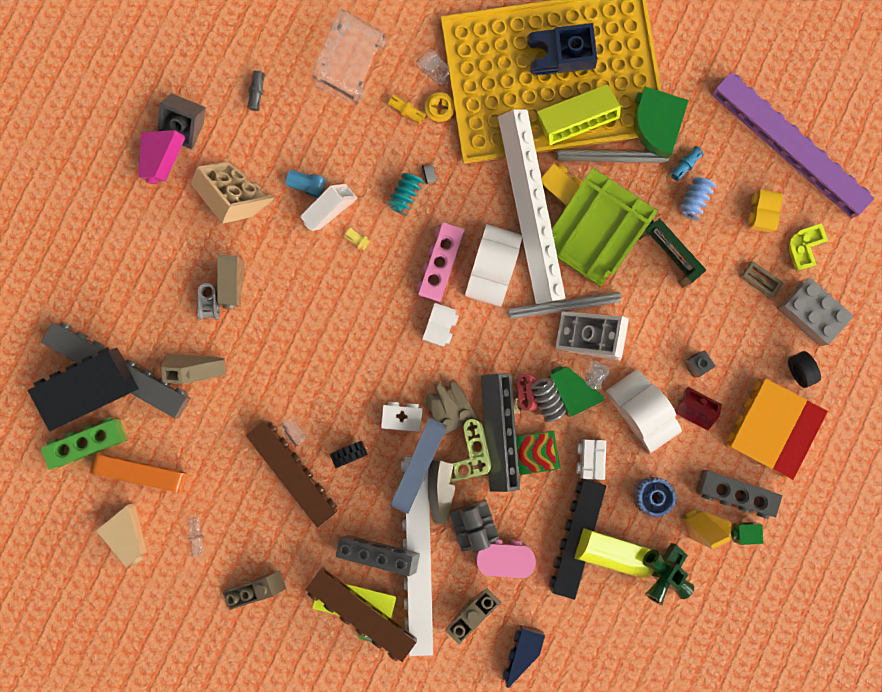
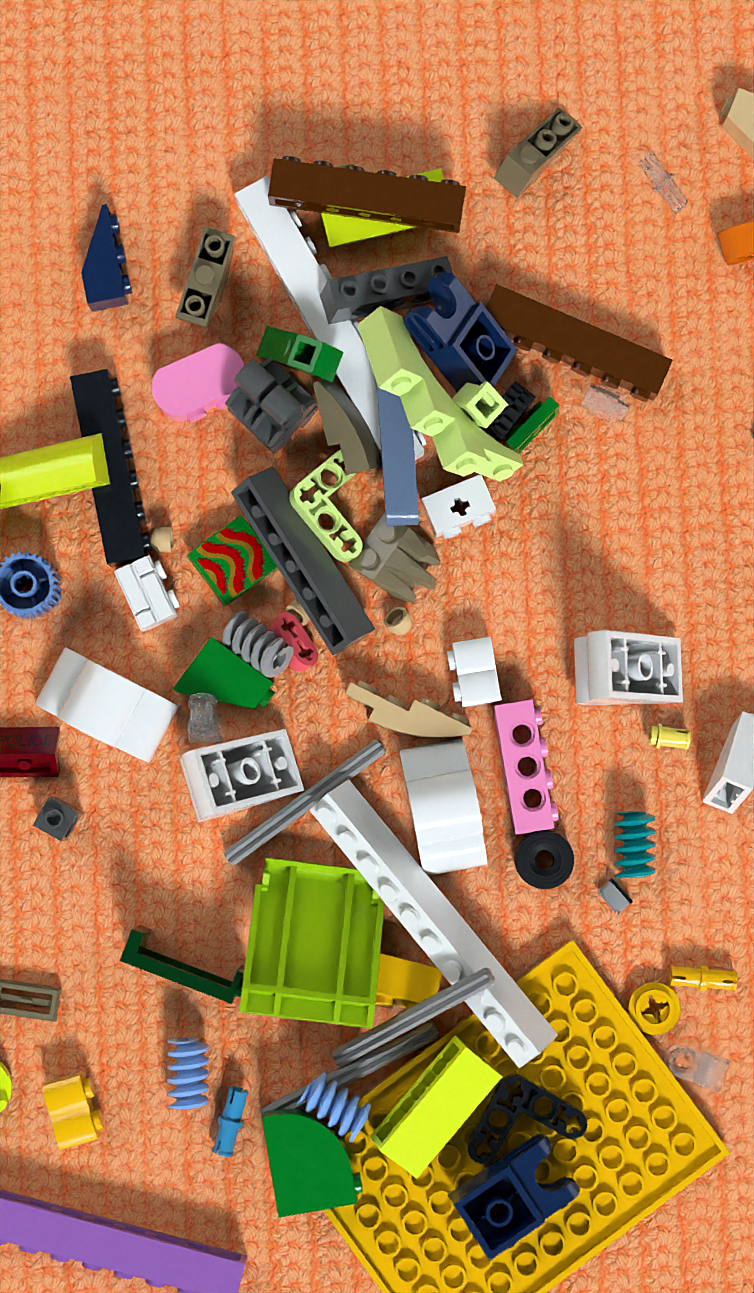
camera: 155 degrees right, 0 degrees up
(333, 442) = (540, 416): none -> green plate
(352, 506) = (460, 334): none -> dark blue brick
(360, 283) = (627, 669): none -> white brick
(363, 464) = (480, 403): none -> yellowish green brick
(392, 476) = (429, 409): none -> yellowish green arch
(444, 545) = (300, 353): none -> green slope
(460, 200) = (557, 872): none -> black tyre
(466, 374) = (398, 621): none -> tan hinge
(481, 315) = (420, 721): none -> tan slope
(533, 93) = (525, 1104): none -> black beam
(566, 163) = (414, 1016): none -> light grey axle
(569, 484) = (162, 539): none -> tan hinge
(630, 141) = (335, 1105): none -> light blue piece

